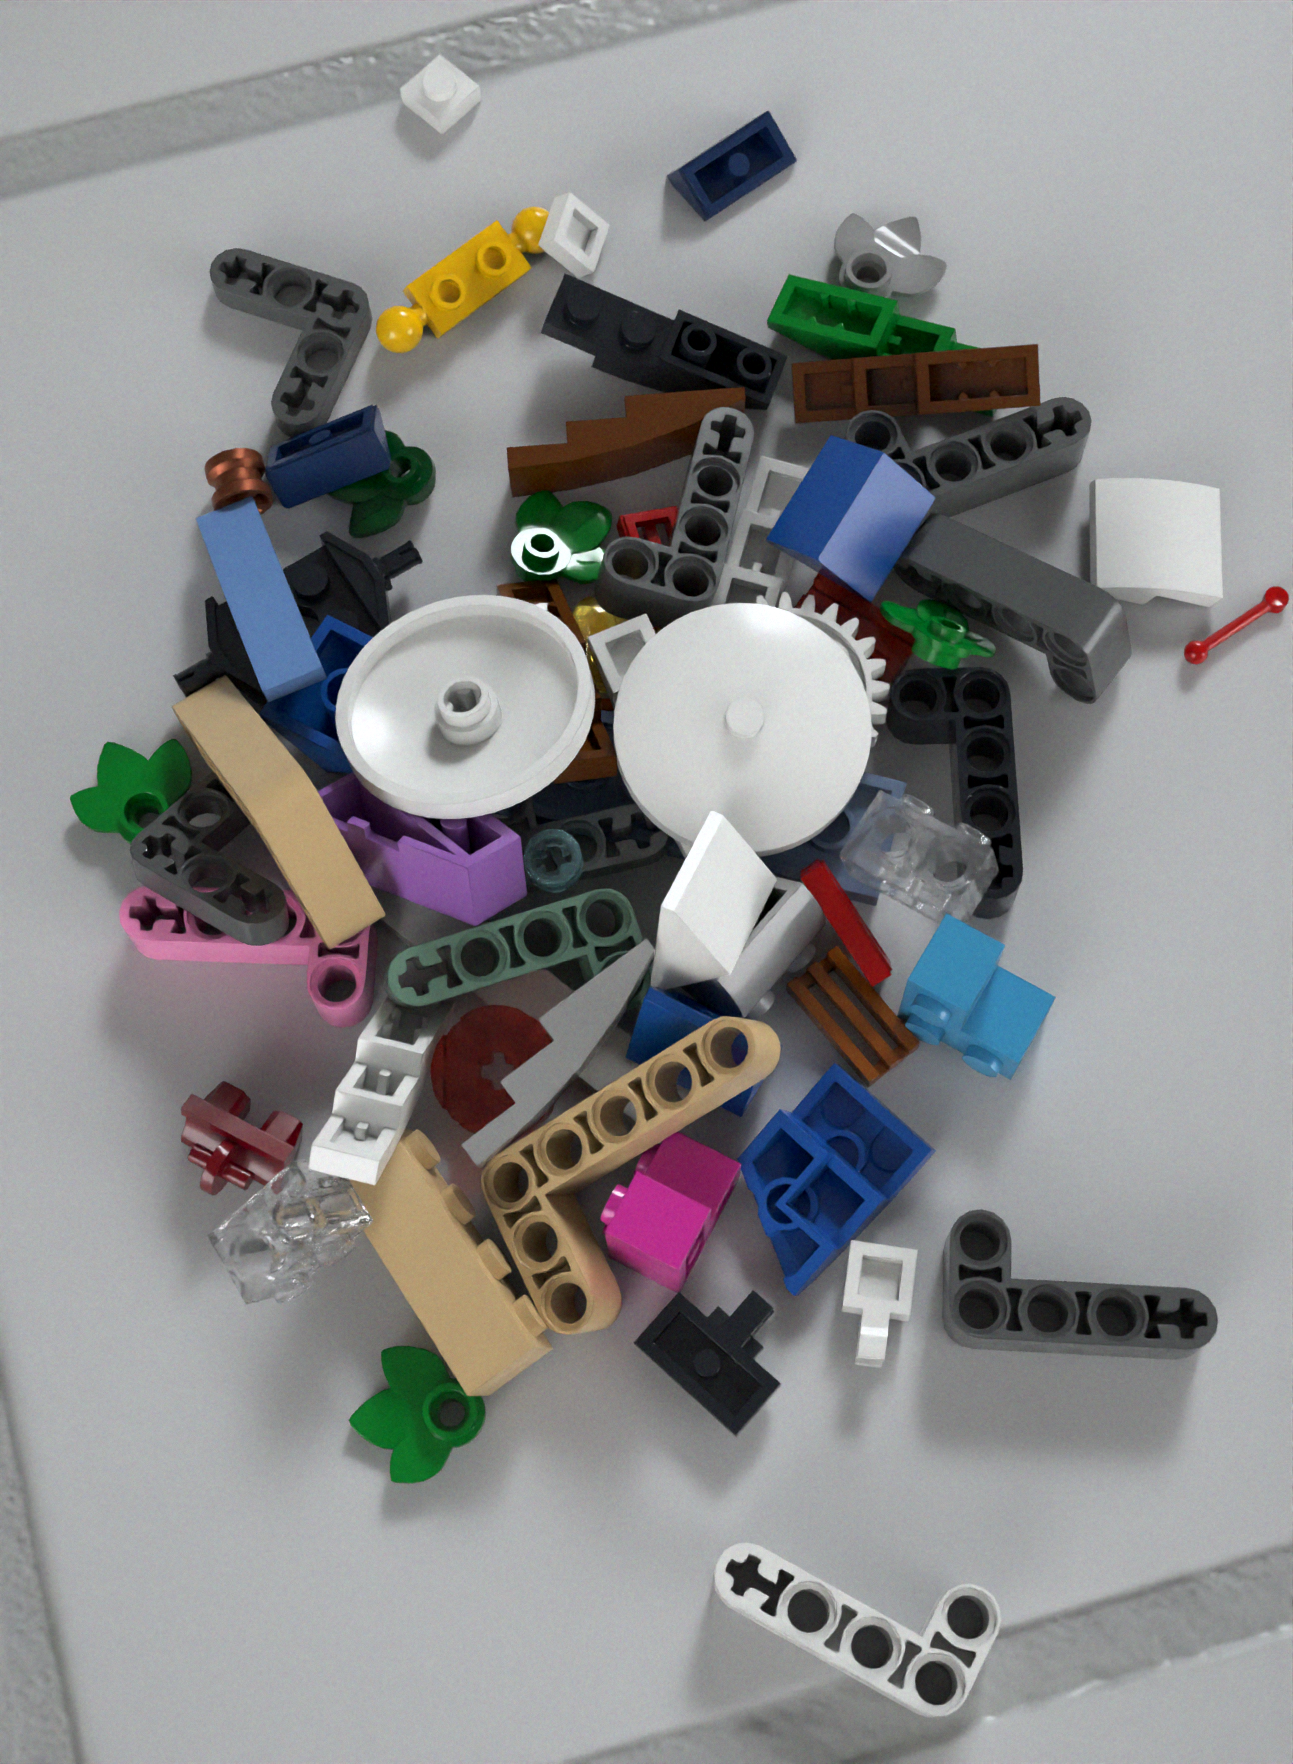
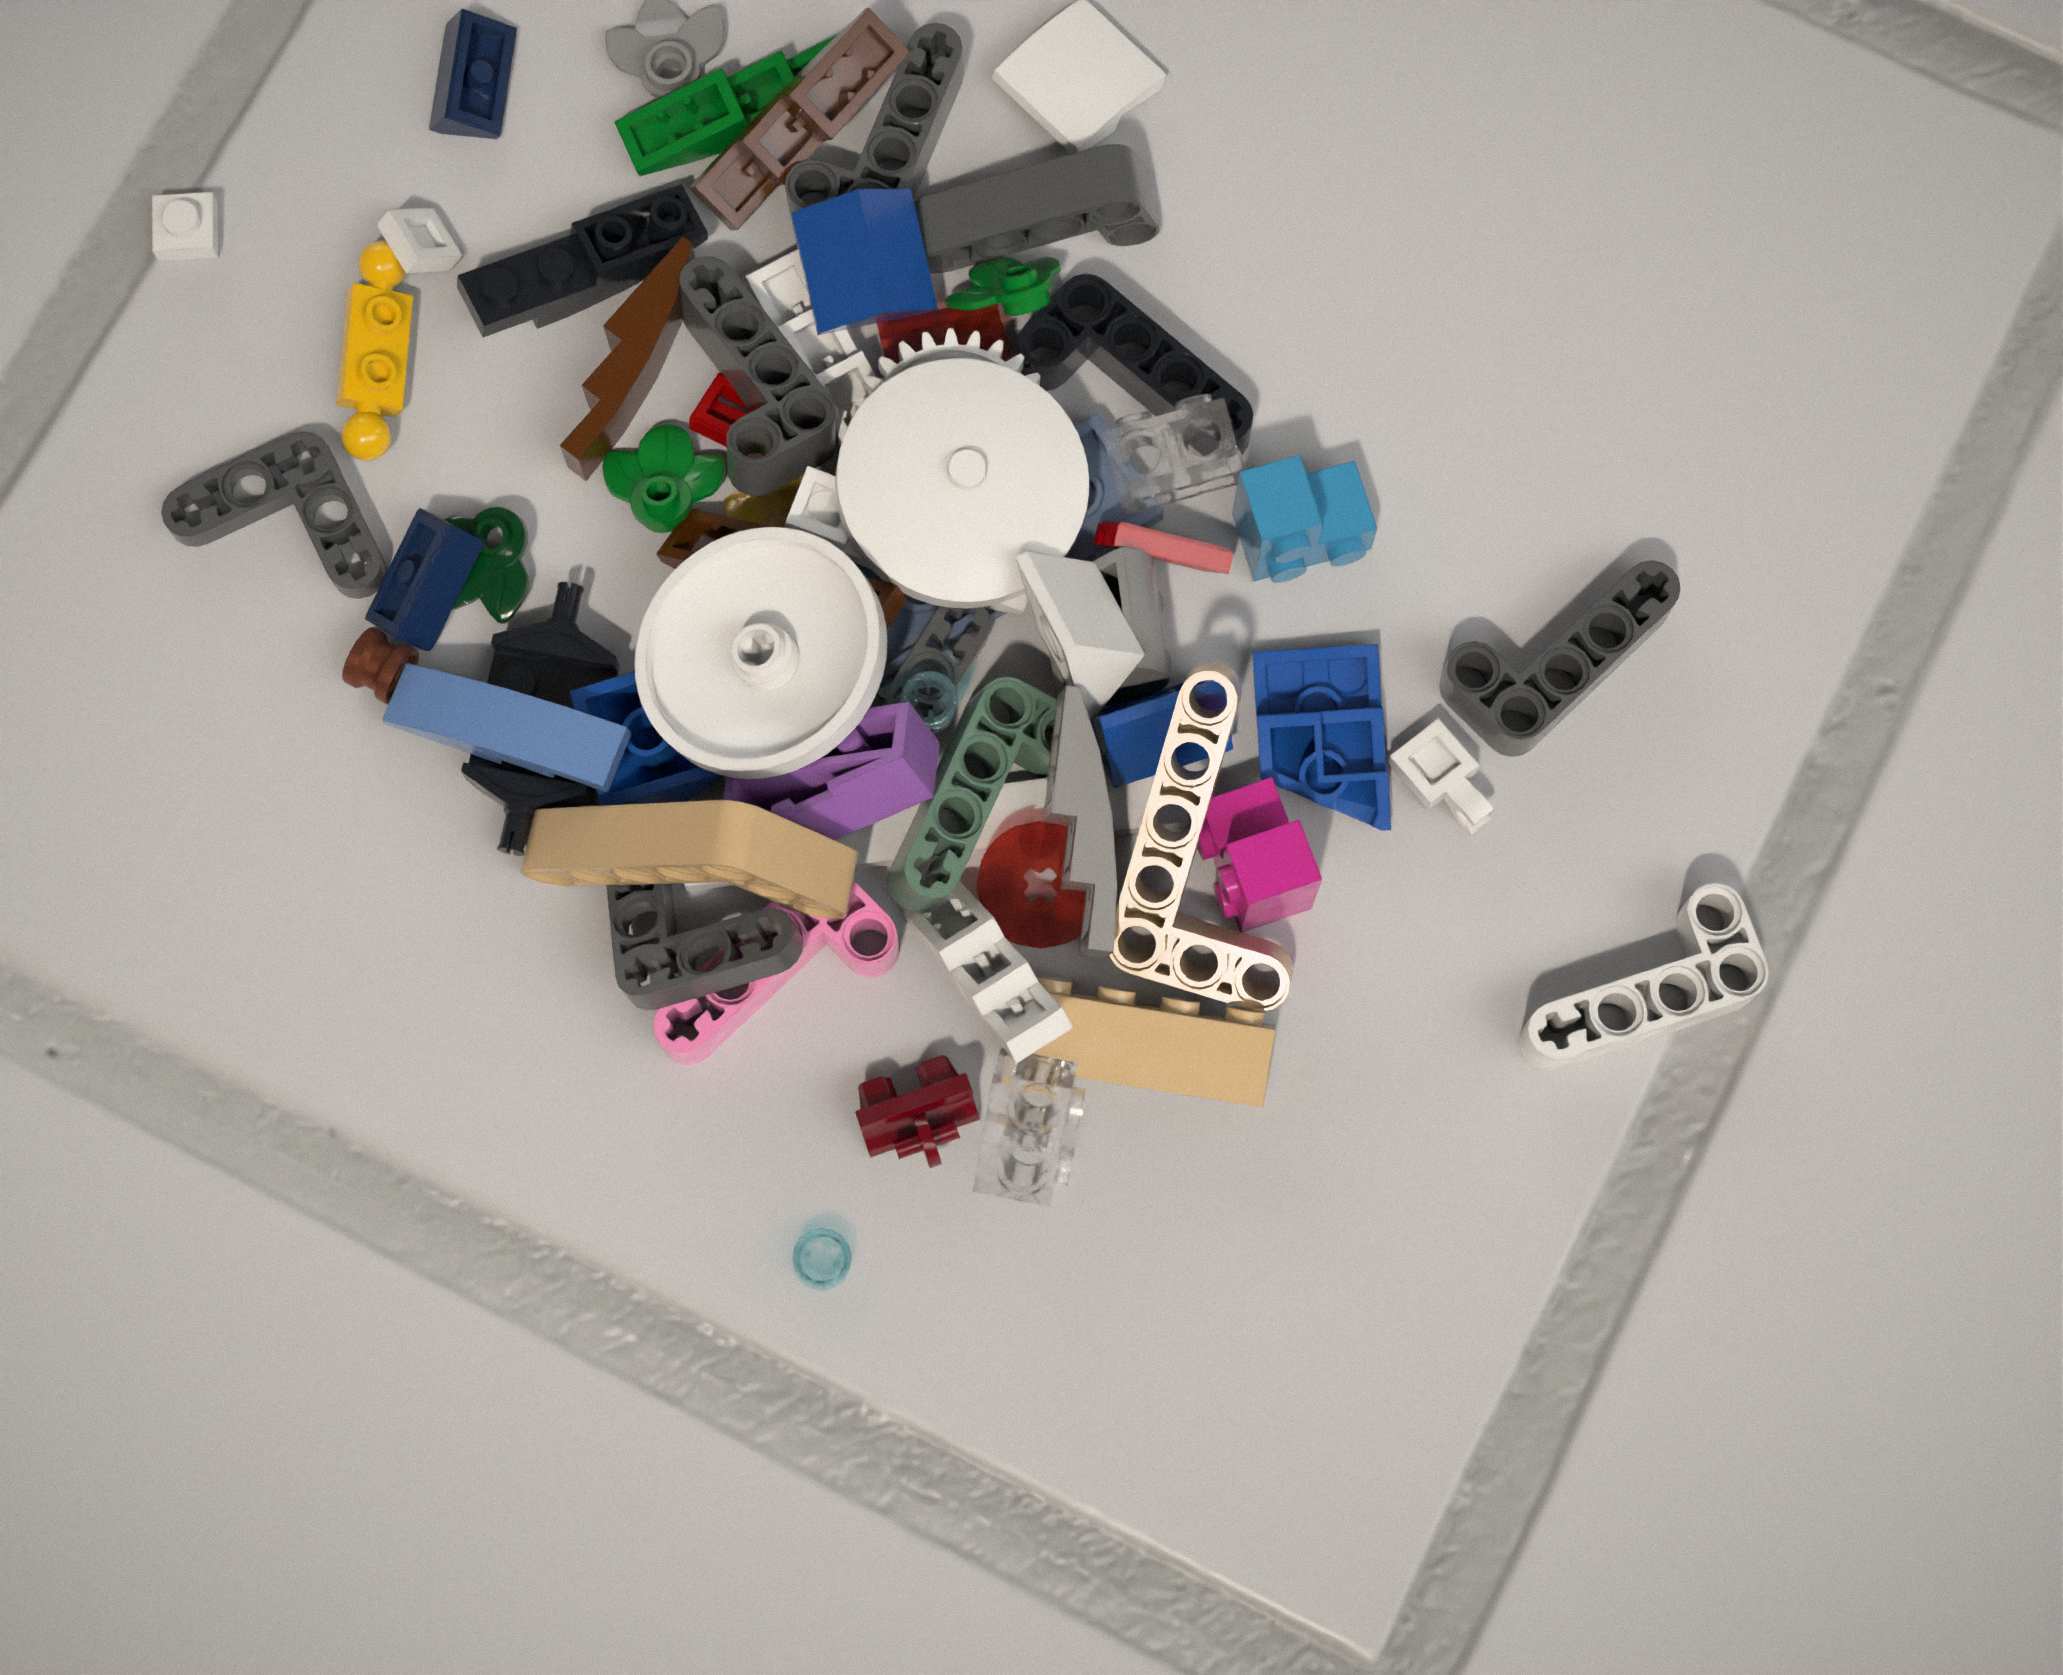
camera: 50 degrees left, 5 degrees up
(51, 1187) = (814, 1278): none -> clear light blue bush
(132, 787) = (553, 956): green plate -> none
(409, 1414) = (1226, 1167): green plate -> none
(714, 1357) = (1382, 922): black hinge -> none
(818, 974) = (1227, 587): dark orange tile -> none
(1273, 601) = (1198, 44): red hinge -> none

